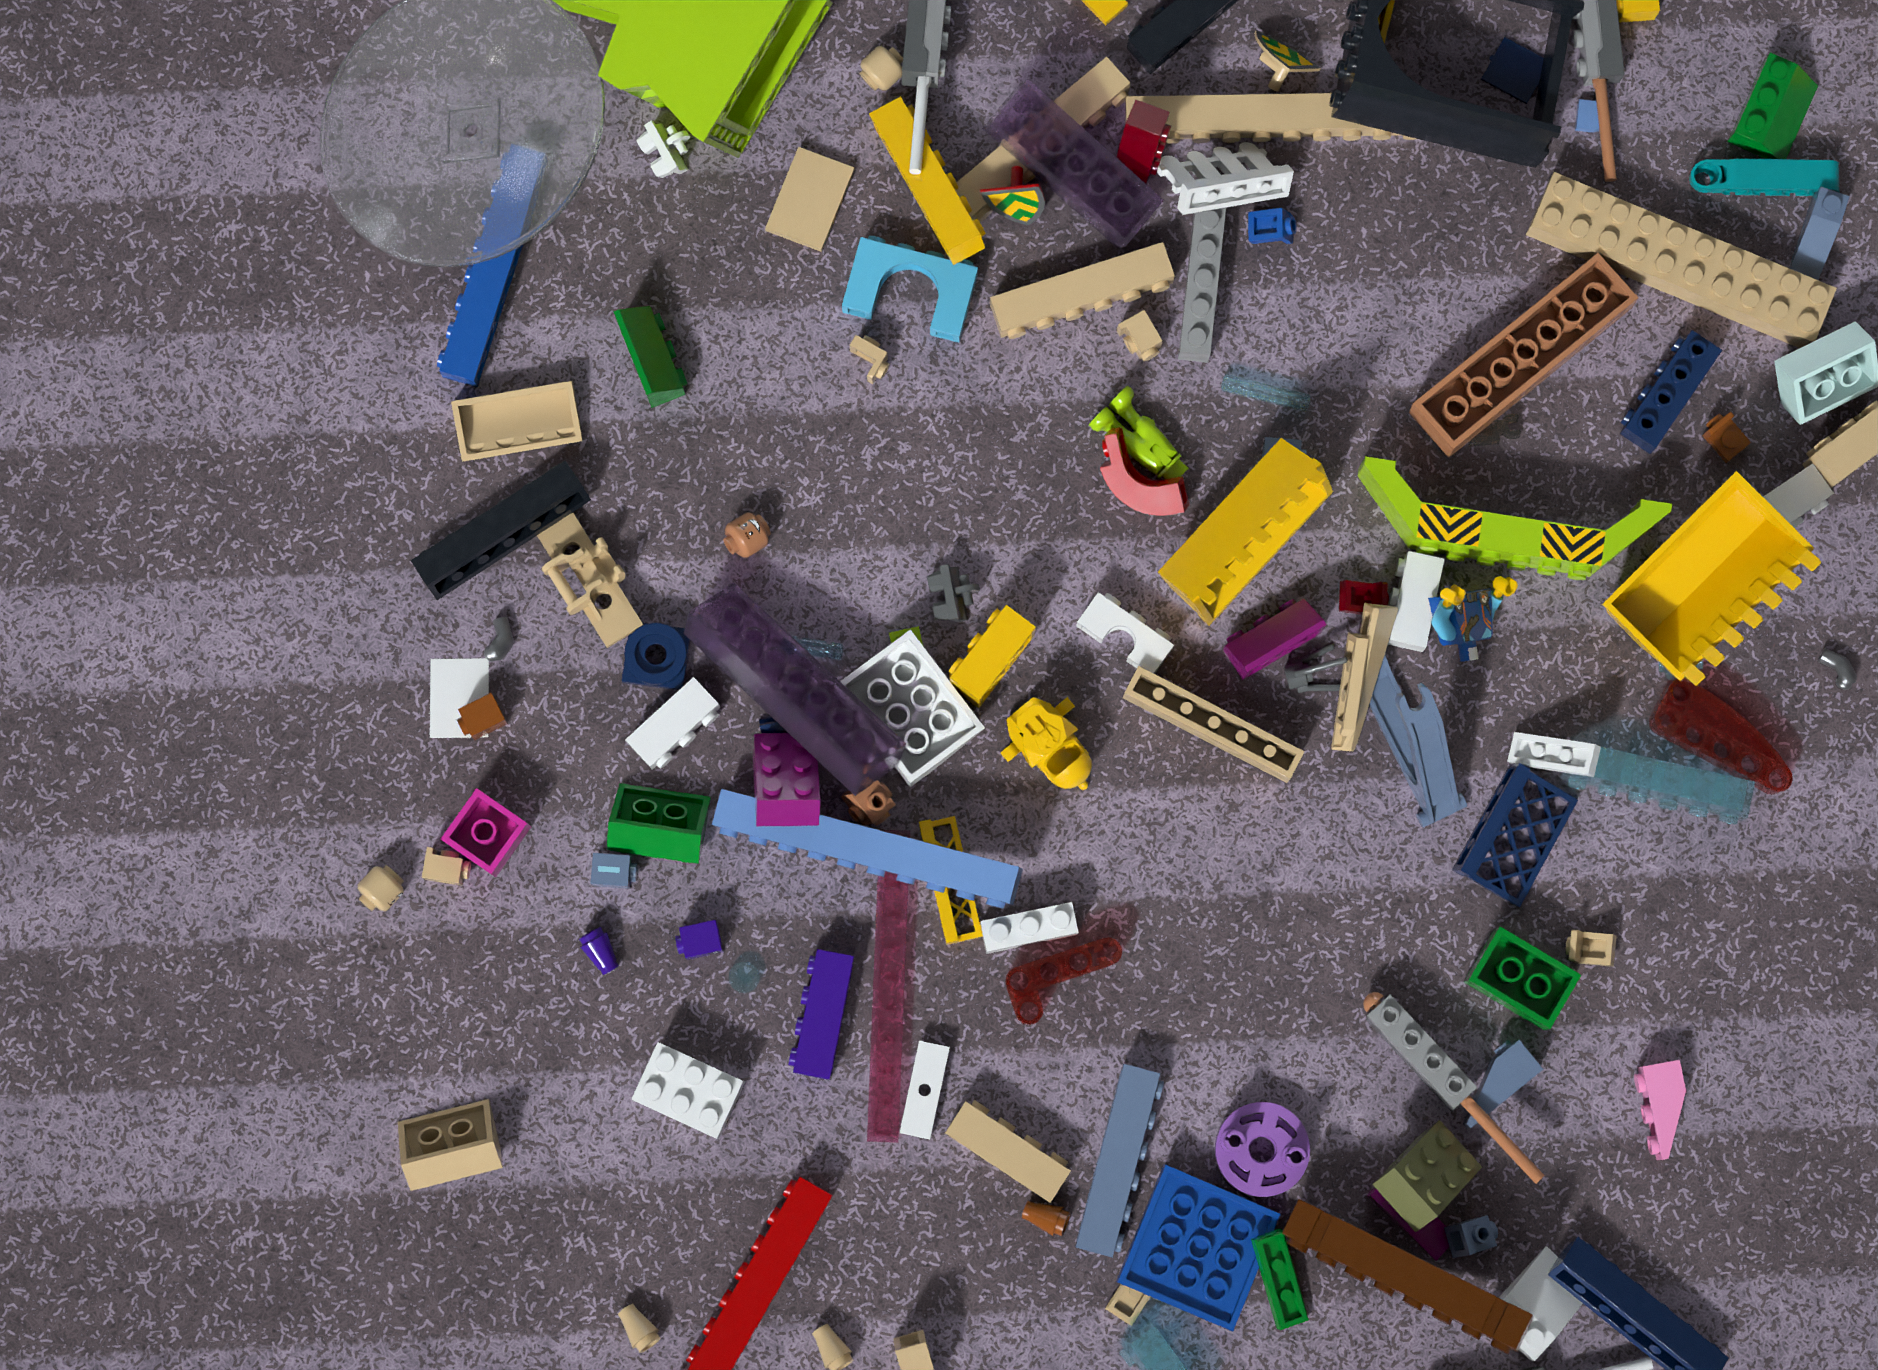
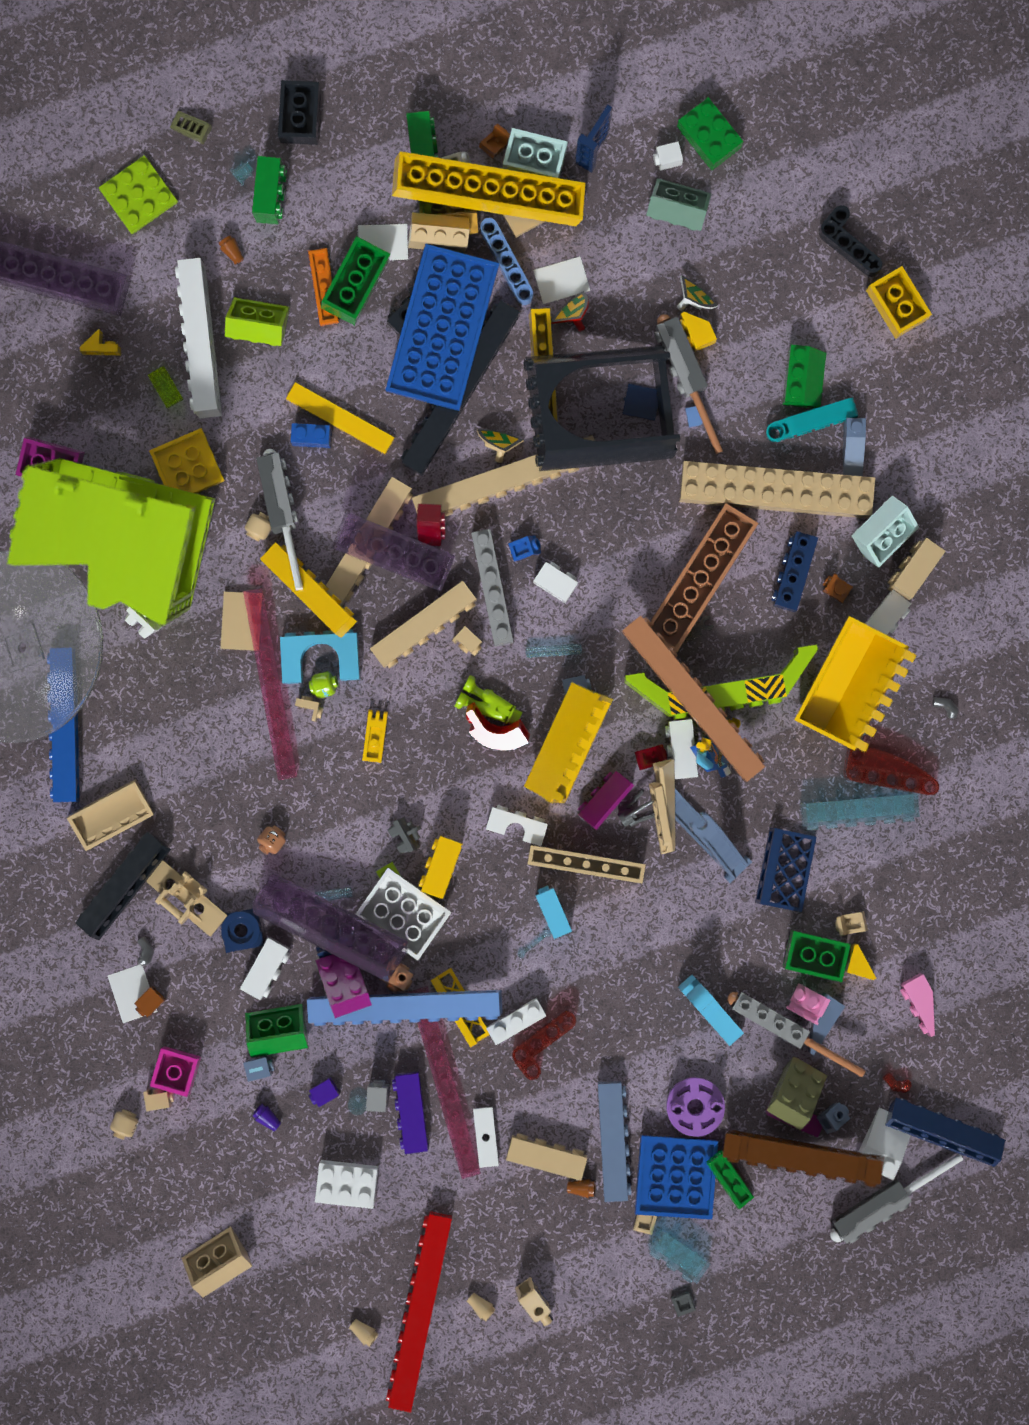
camera: 15 degrees left, 5 degrees up
(651, 354) = (177, 750): green slope -> none
(780, 970) = (377, 1096): none -> light grey brick
(821, 304) = (269, 684): none -> clear pink plate
(902, 330) = (323, 684): none -> lime head
(953, 433) = (375, 737): none -> yellow hinge
(1017, 202) = (367, 584): shield -> none
(1049, 743) = (492, 906): yellow helmet -> none
(1070, 830) = (521, 953): none -> clear light blue hinge
(1139, 778) = (553, 912): none -> medium azure window
(1234, 187) = (490, 538): white fence -> none
(1302, 291) = (556, 582): none -> white brick
(1331, 999) = (710, 1010): none -> medium azure beam
(1458, 521) = (693, 699): none -> nougat brick
(1486, 1047) = (808, 1004): none -> bright pink plate
(1554, 754) = (793, 816): white plate -> none
(1582, 1014) = (858, 964): none -> yellow slope
(1584, 1221) = (897, 1086): none -> clear red arm

